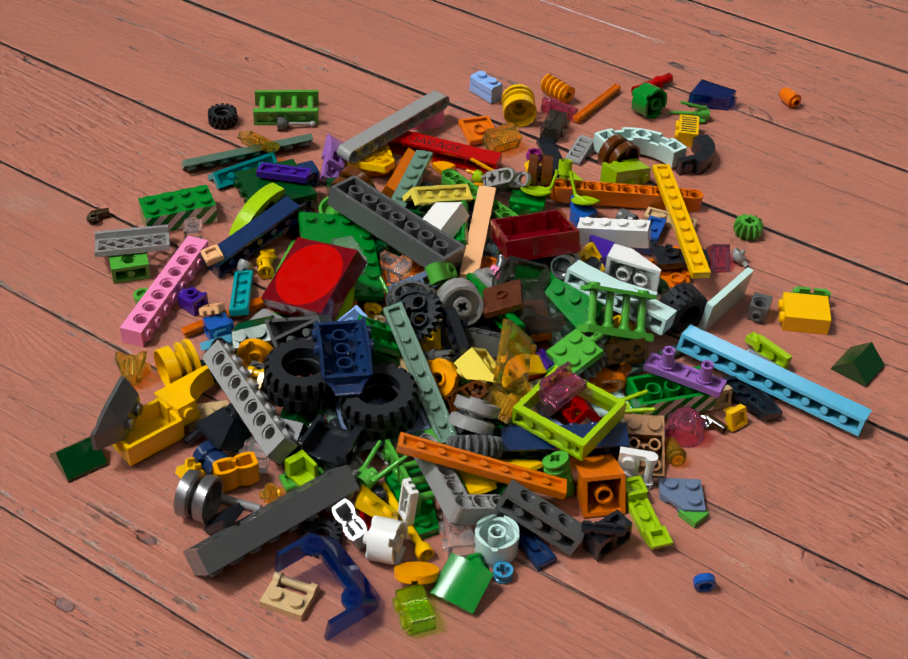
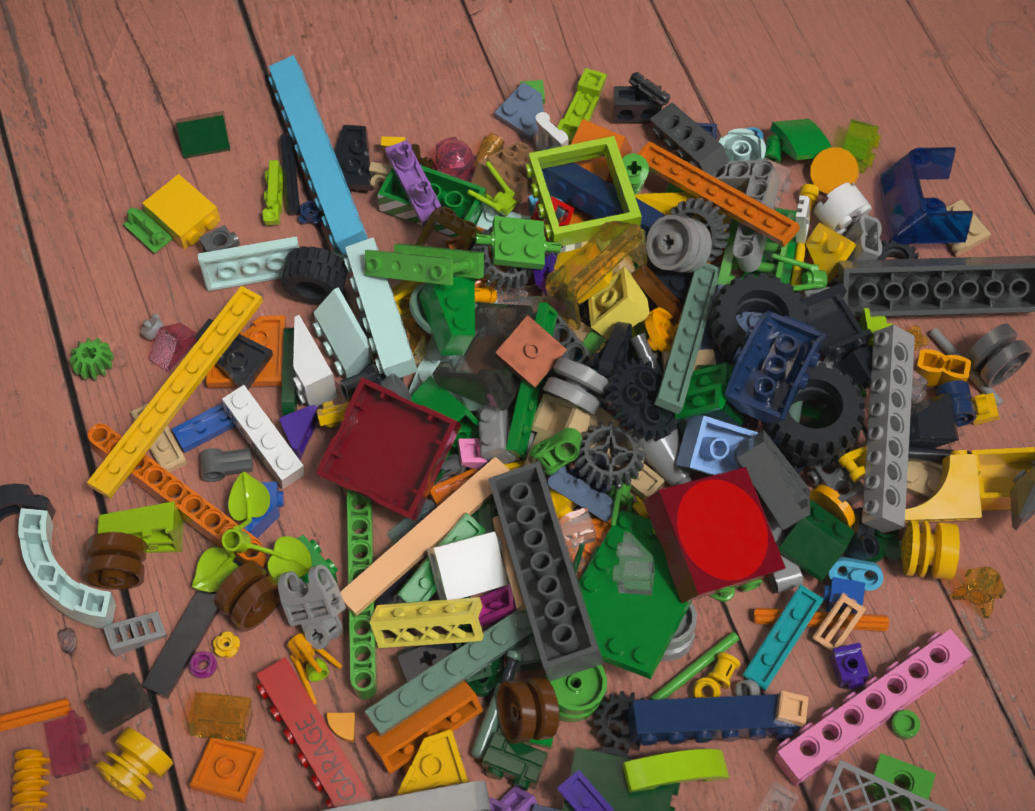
camera: 140 degrees left, 20 degrees up
(224, 519) = (982, 315): black tile -> none
(561, 386) = (578, 199): clear pink bracket -> none
(704, 582) = (590, 29): blue tile -> none

